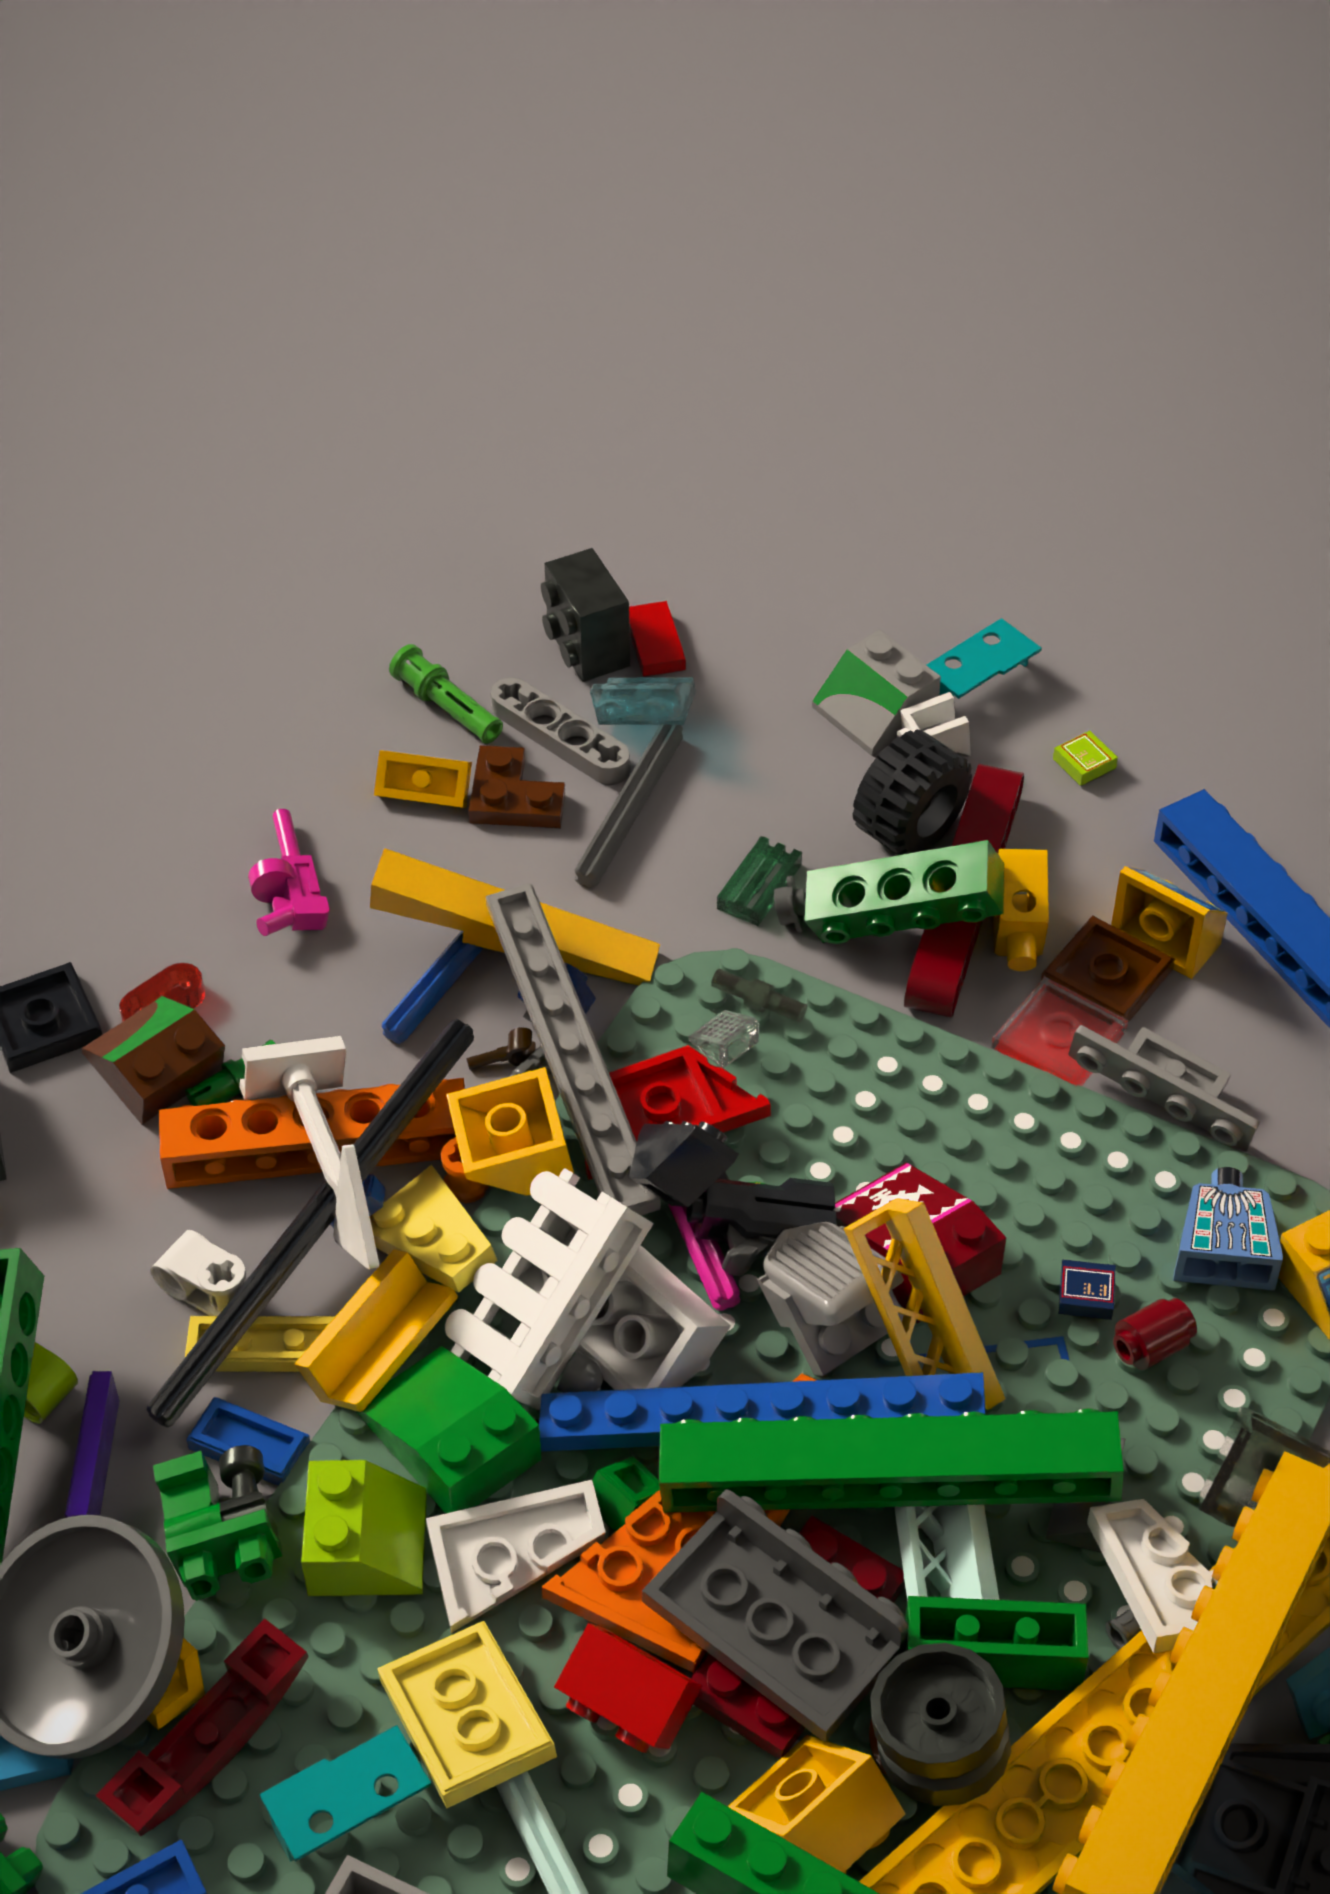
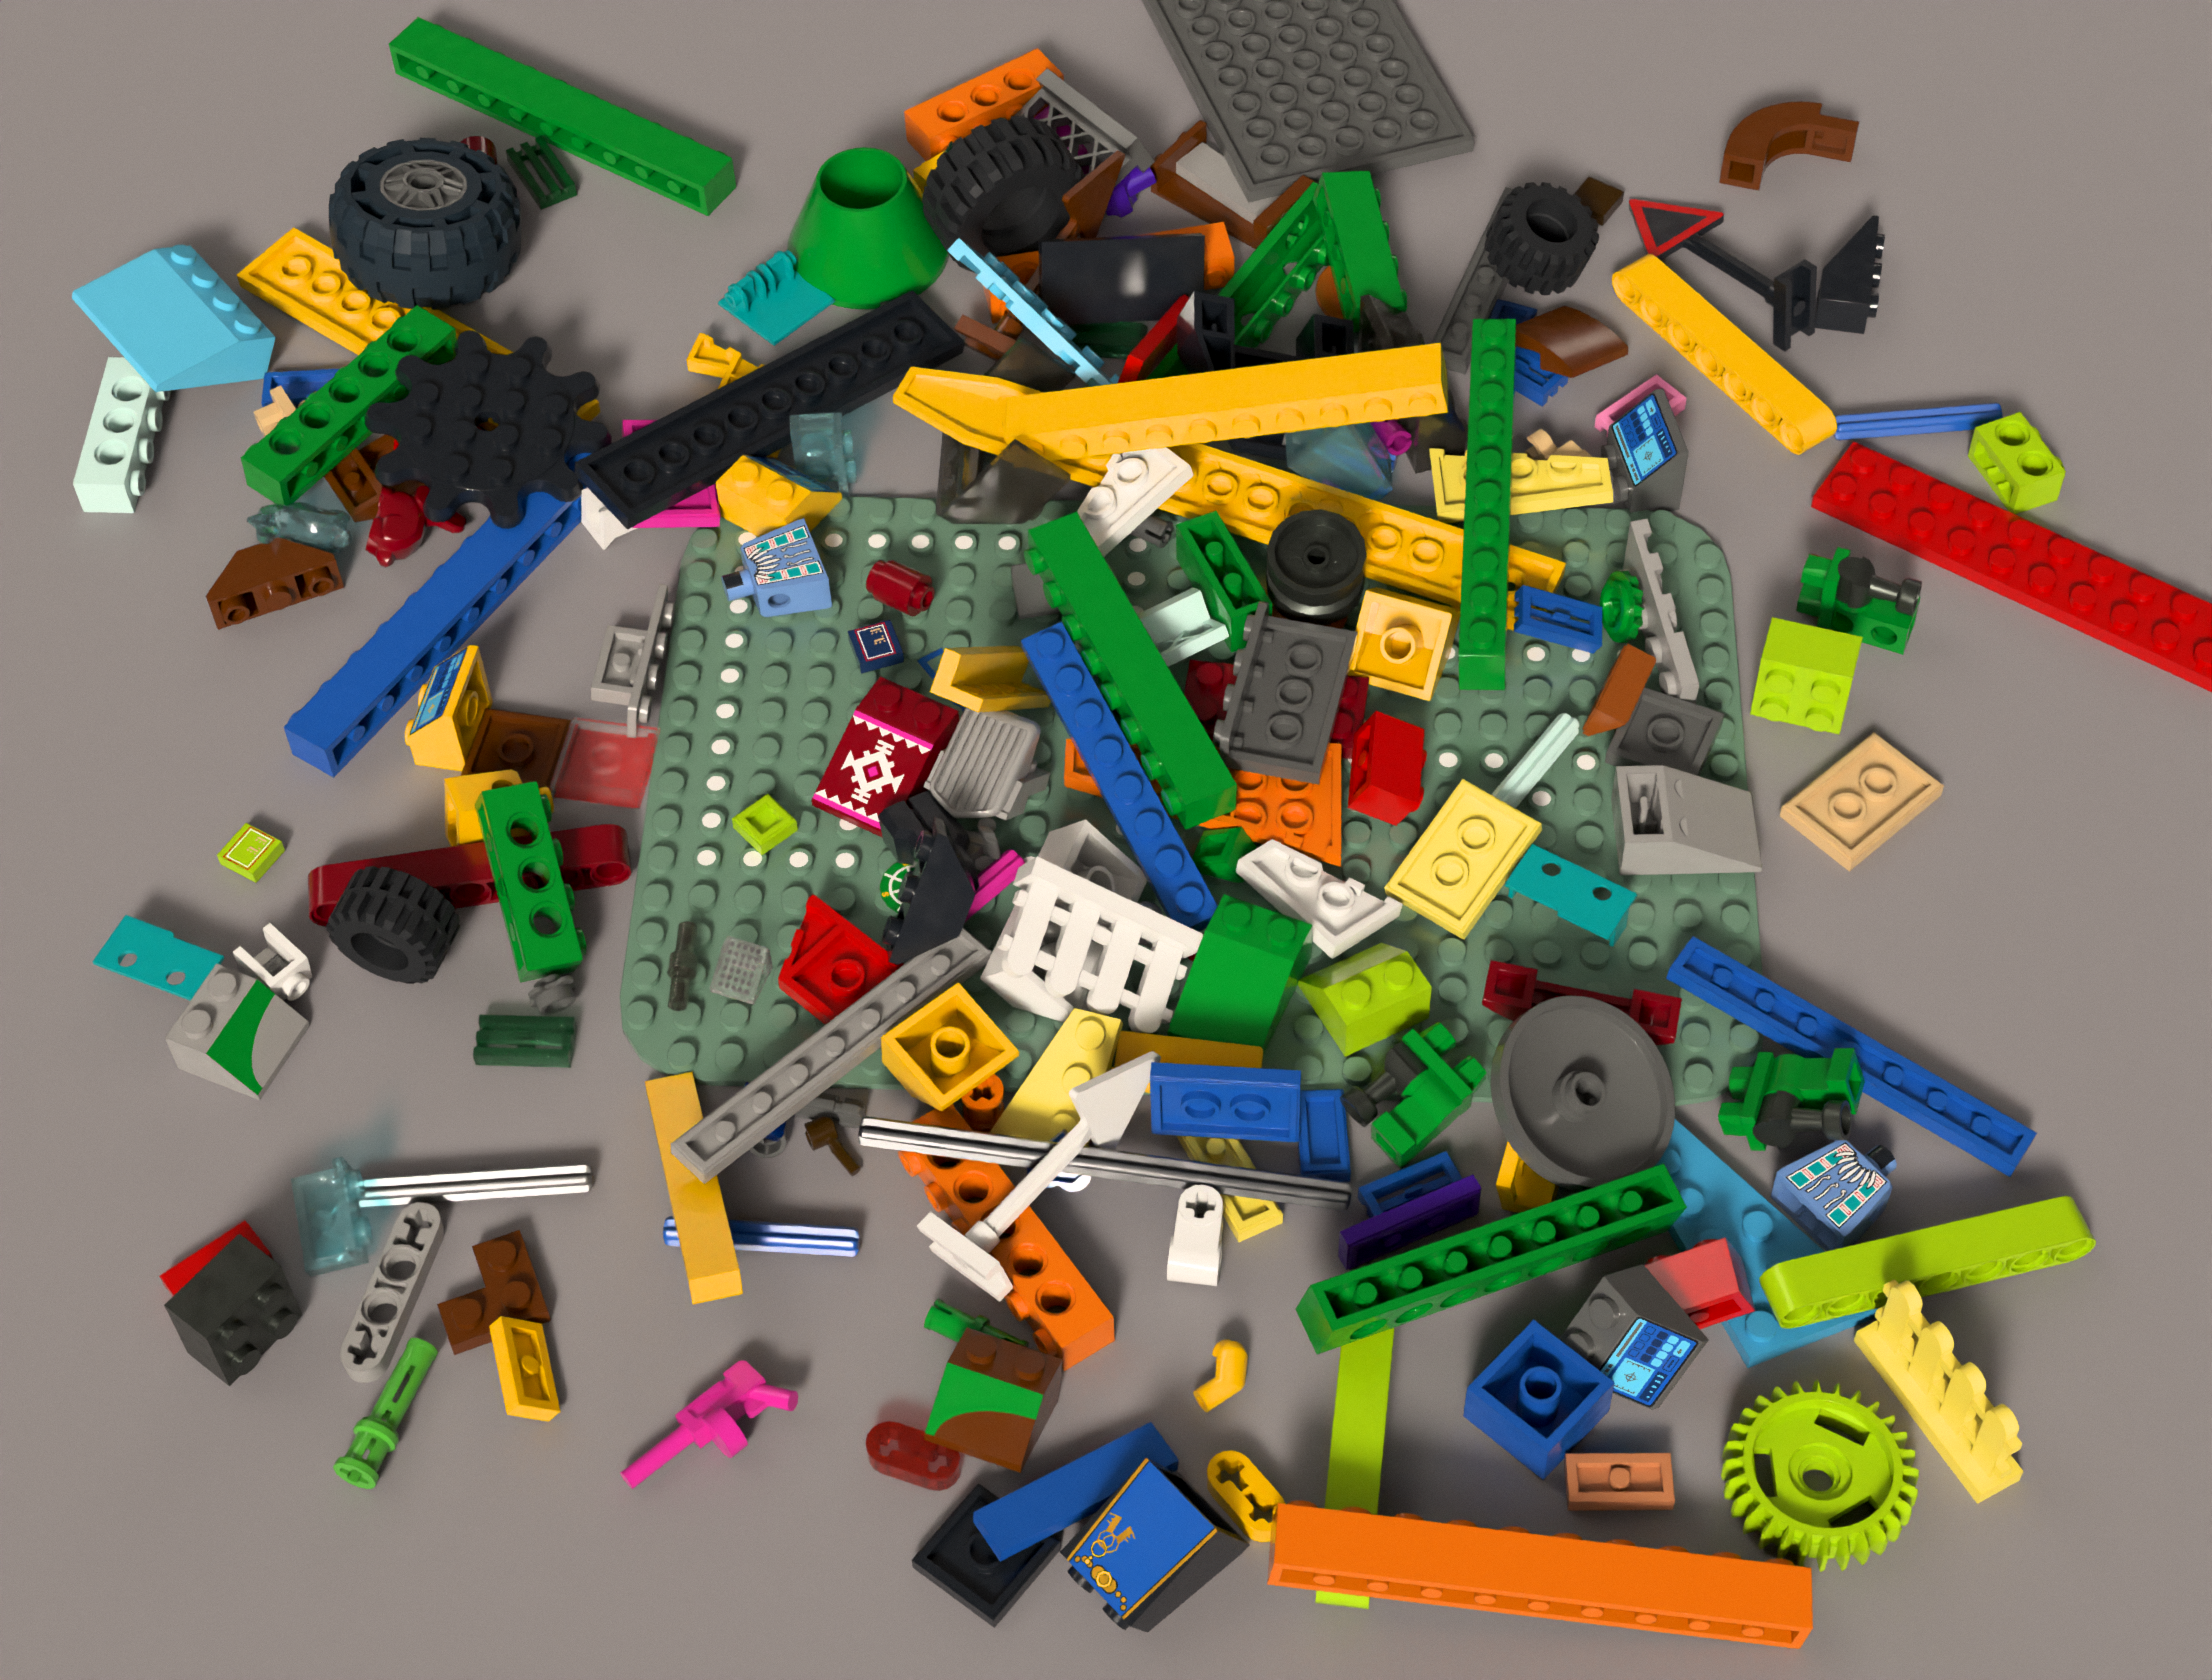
camera: 115 degrees left, 5 degrees up
(37, 1088) = (1068, 1492): none -> blue tile
(63, 1248) = (1229, 1375): none -> yellow arm
(106, 1499) = (1370, 1192): none -> blue tile
(298, 1322) = (1225, 1102): none -> blue tile
(897, 1116) = (764, 824): none -> lime tile

